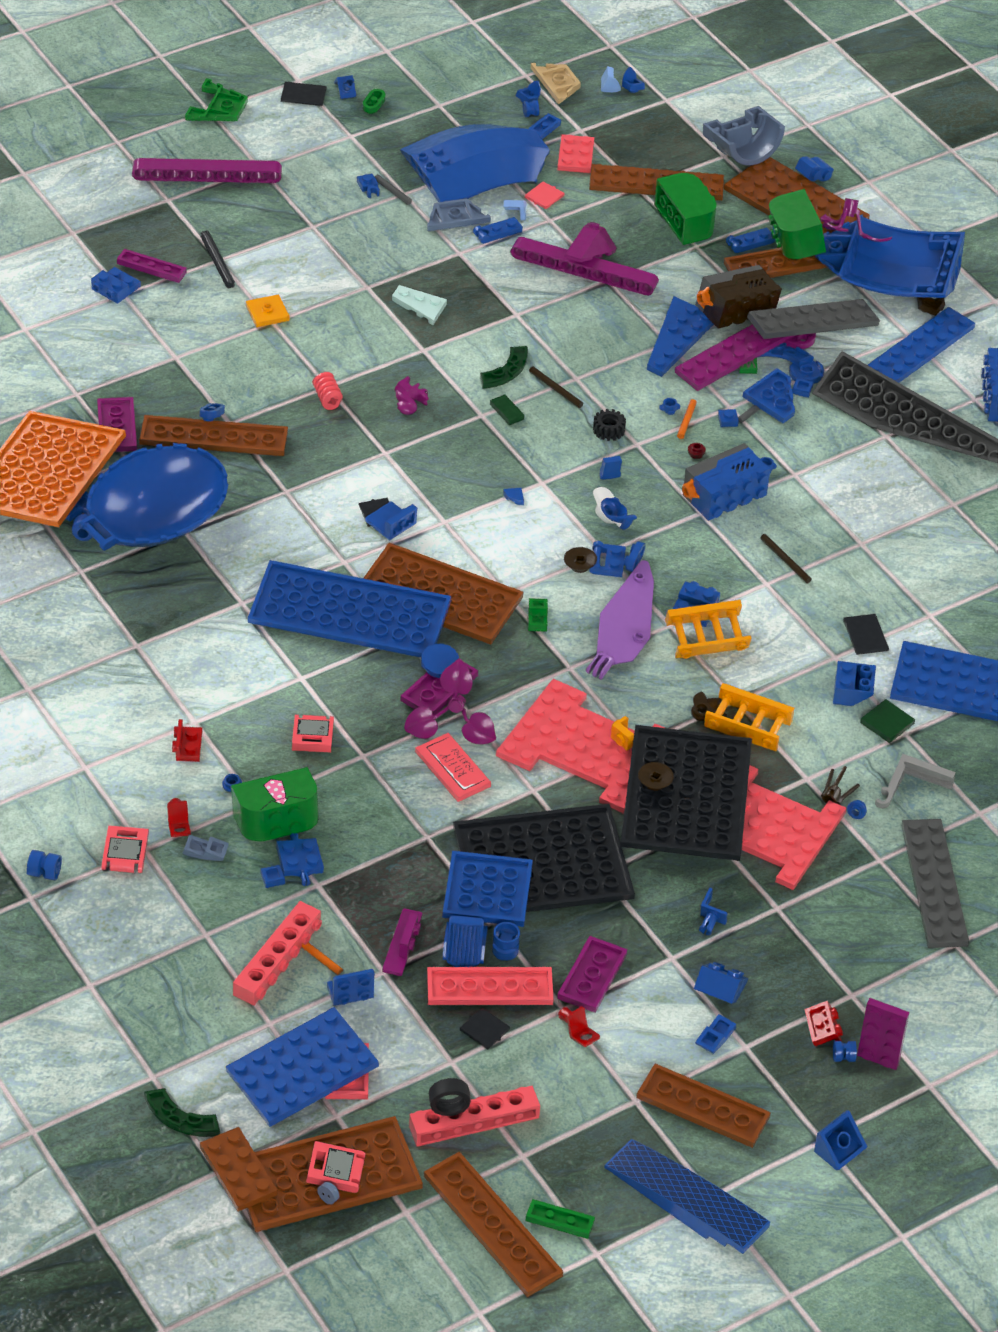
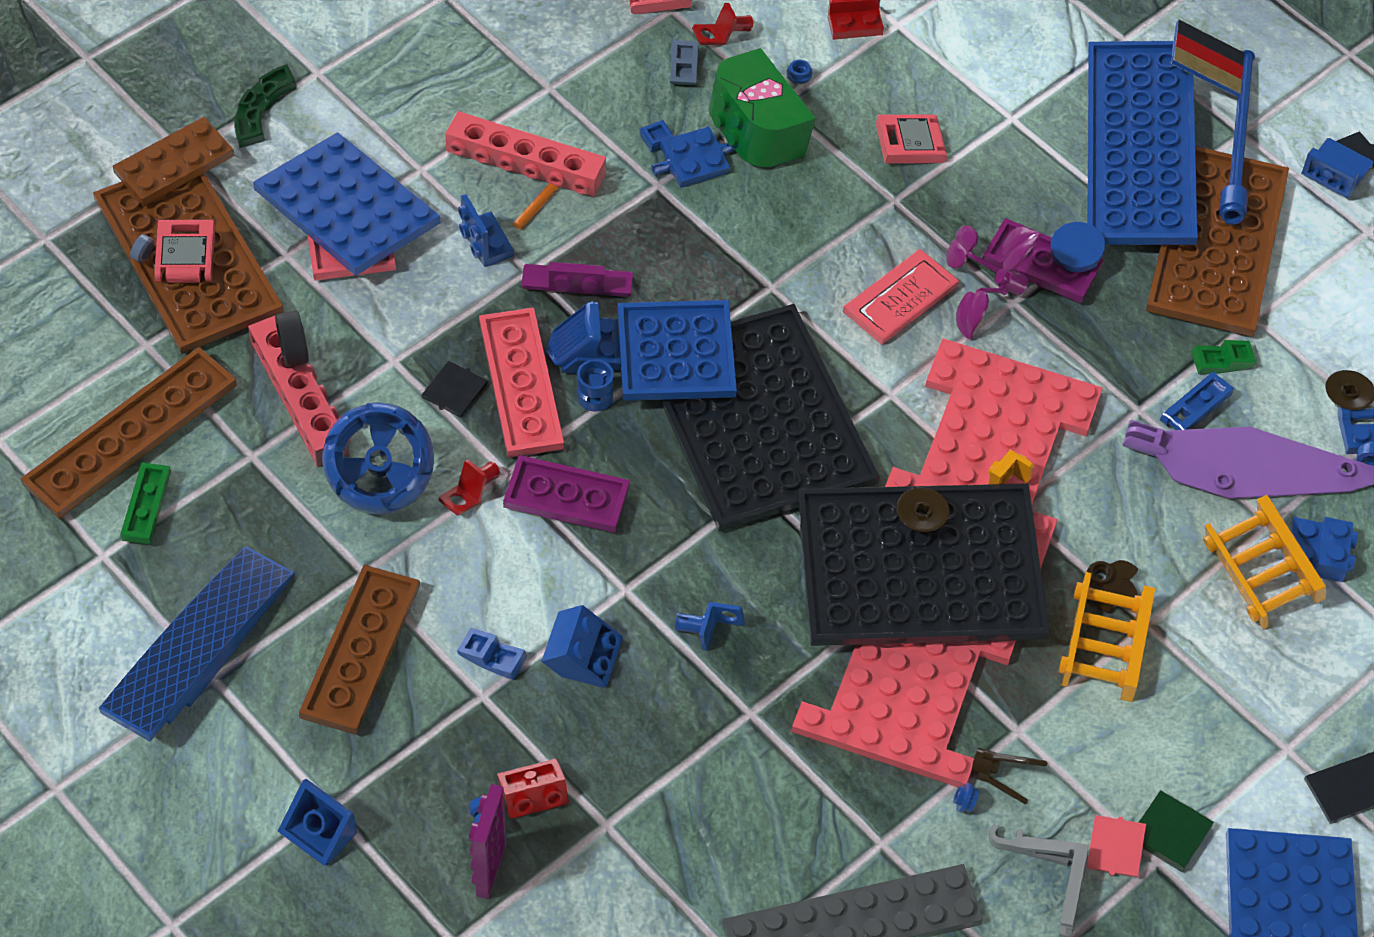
camera: 80 degrees right, 10 degrees up
(294, 555) = (1230, 71): none -> flag
(549, 1075) = (383, 423): none -> blue wheel
(575, 635) = (1197, 403): none -> blue plate
(853, 683) = (1224, 765): blue slope -> none
(895, 744) = (1116, 846): none -> coral piece

